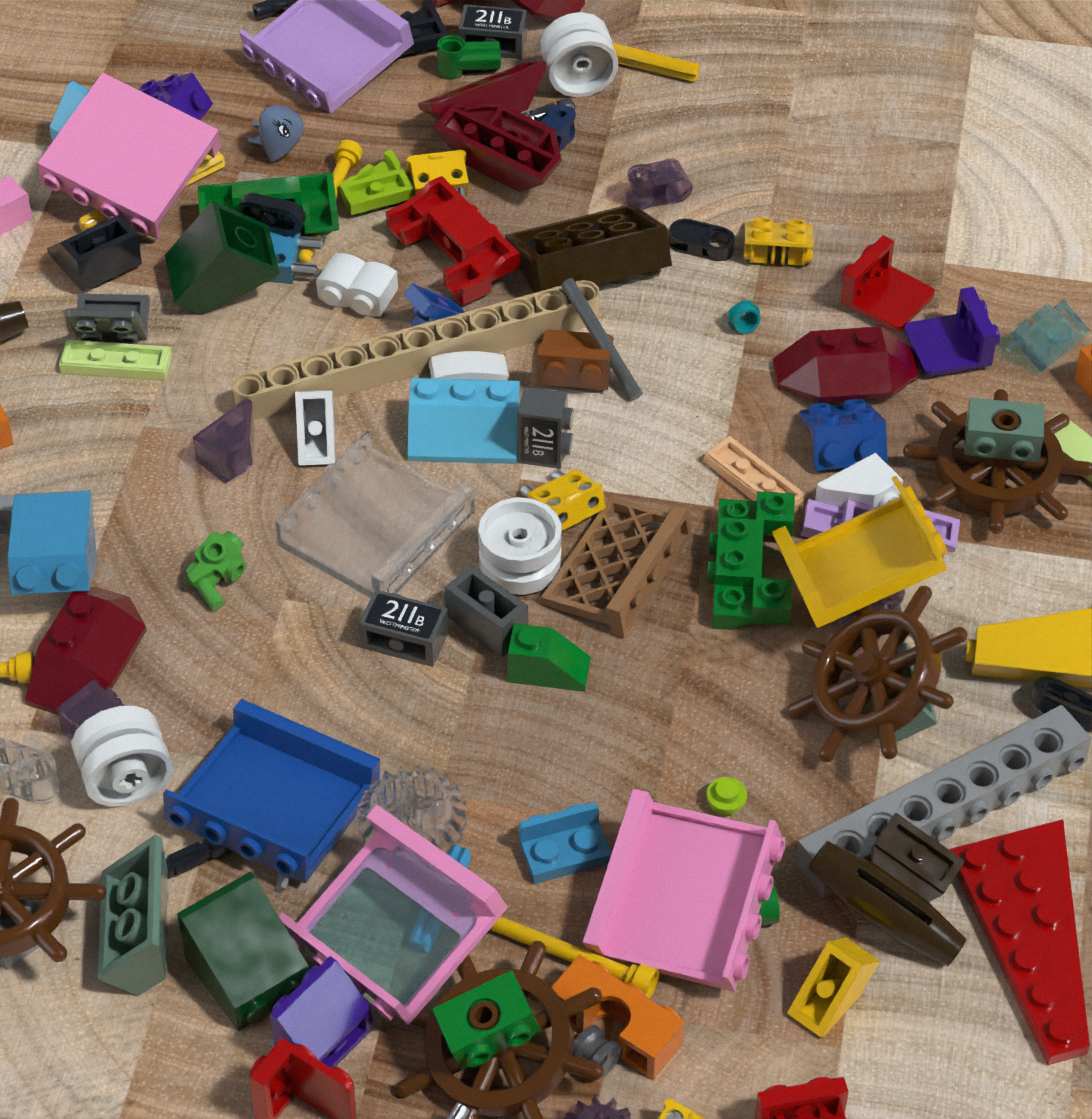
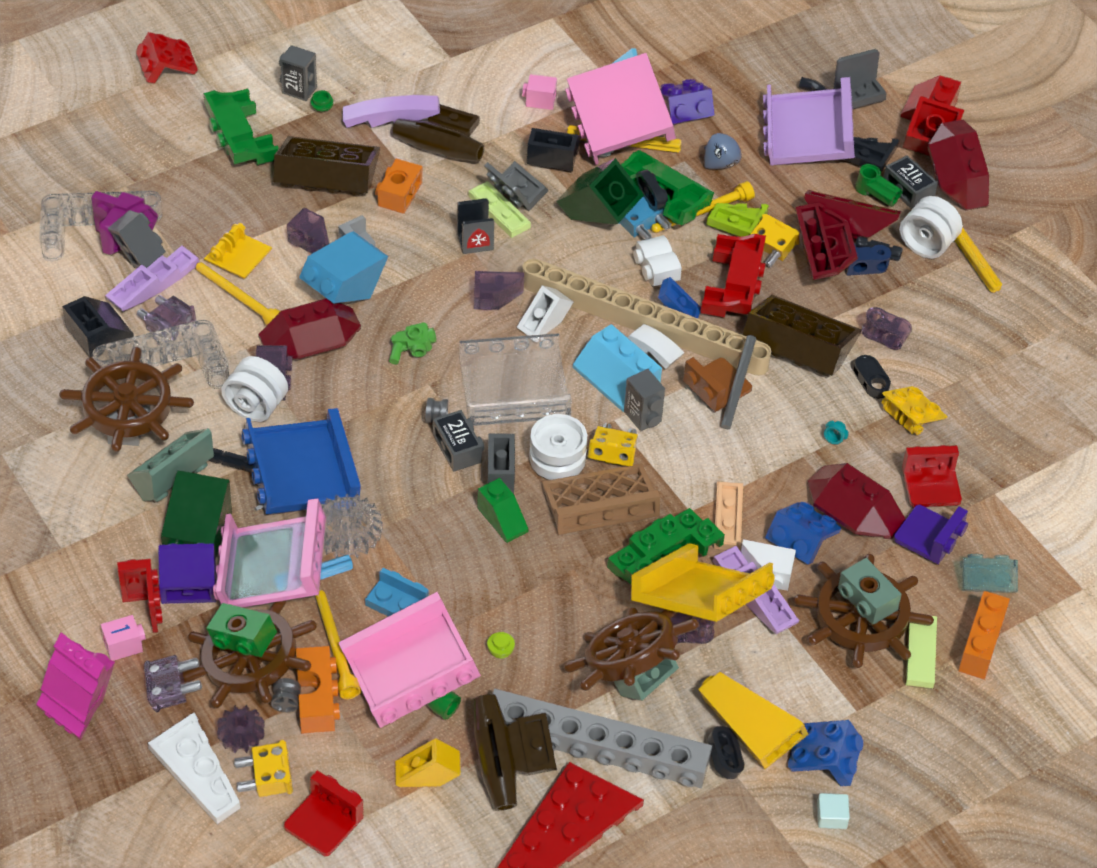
camera: 45 degrees right, 0 degrees up
(113, 393) = (474, 226): none -> piece
(340, 615) = (436, 409): none -> flat silver wheel

